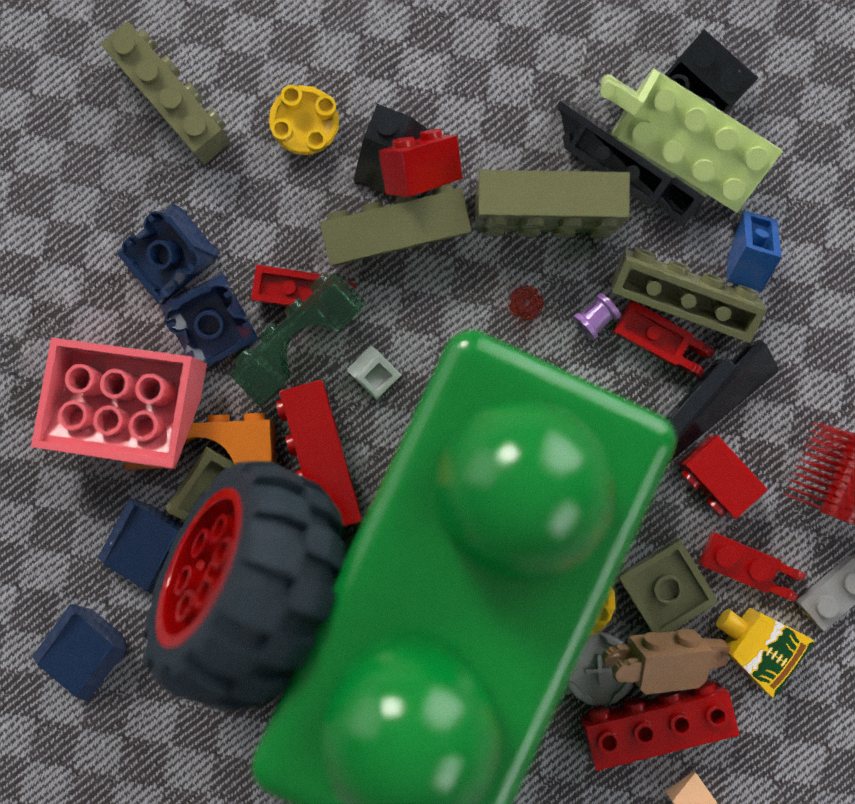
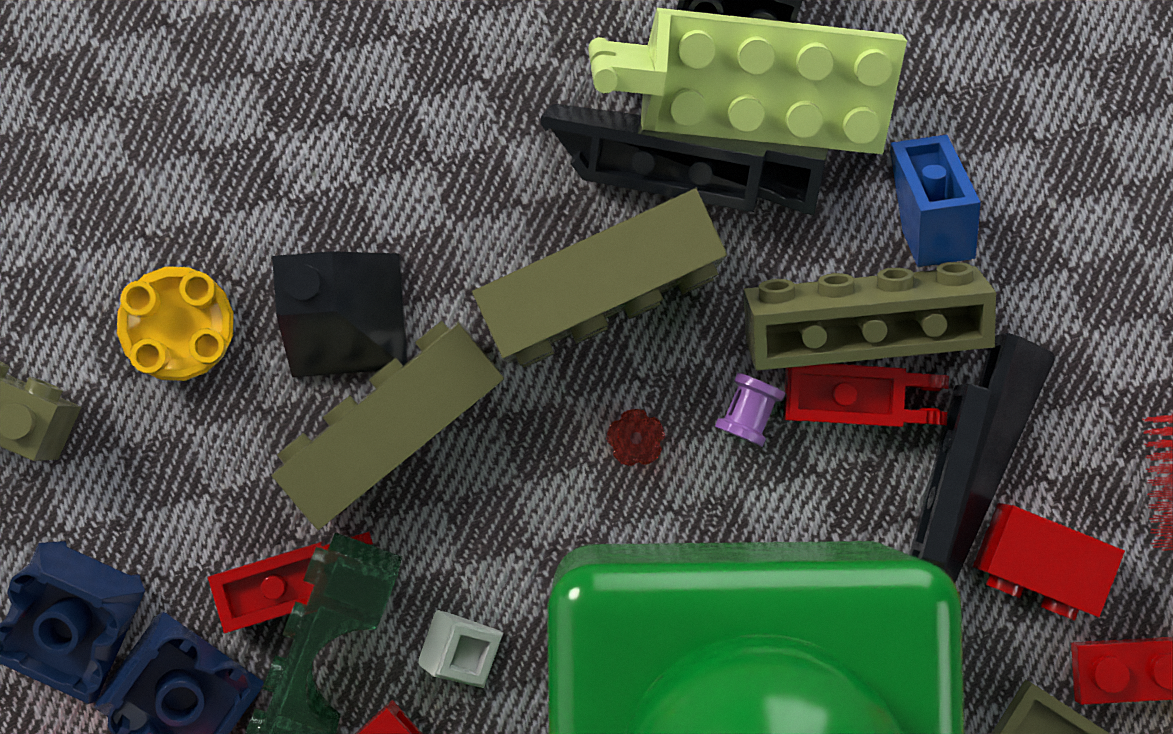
camera: 25 degrees left, 0 degrees up
(420, 163) = (380, 315): red brick -> none

